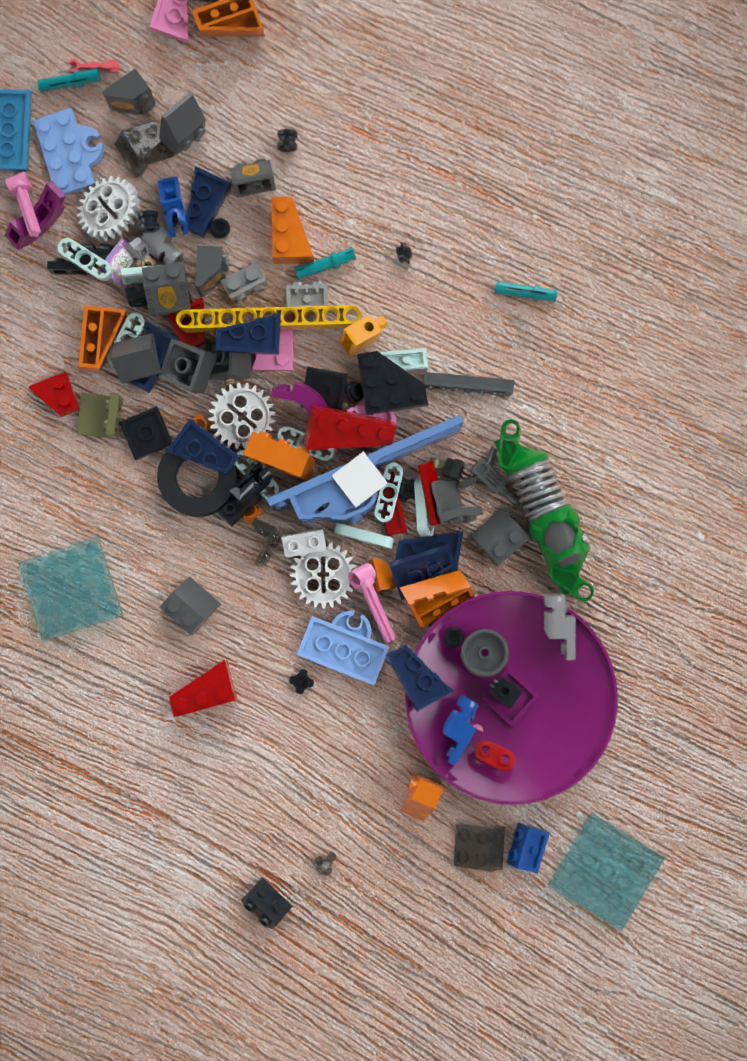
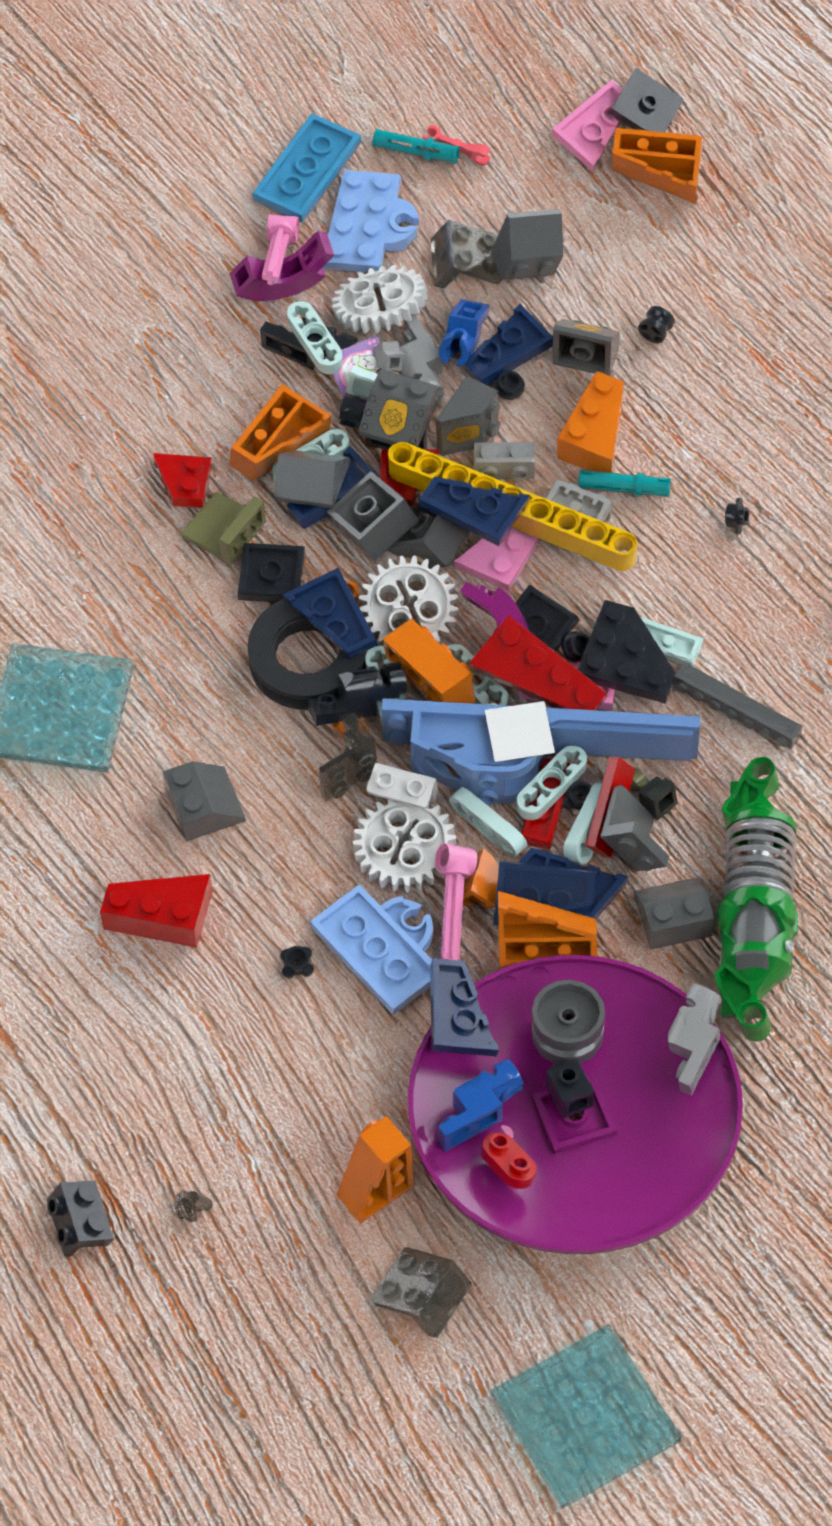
camera: 30 degrees right, 25 degrees down
(129, 95) = (481, 187): dark grey slope -> none
(148, 221) = (421, 328): black wheel -> none
(362, 334) = (625, 579): light orange torso -> none
(454, 637) = (532, 988): black plate -> none
(483, 472) = (702, 831): dark grey piece -> none
(527, 848) = (489, 1324): blue bracket -> none

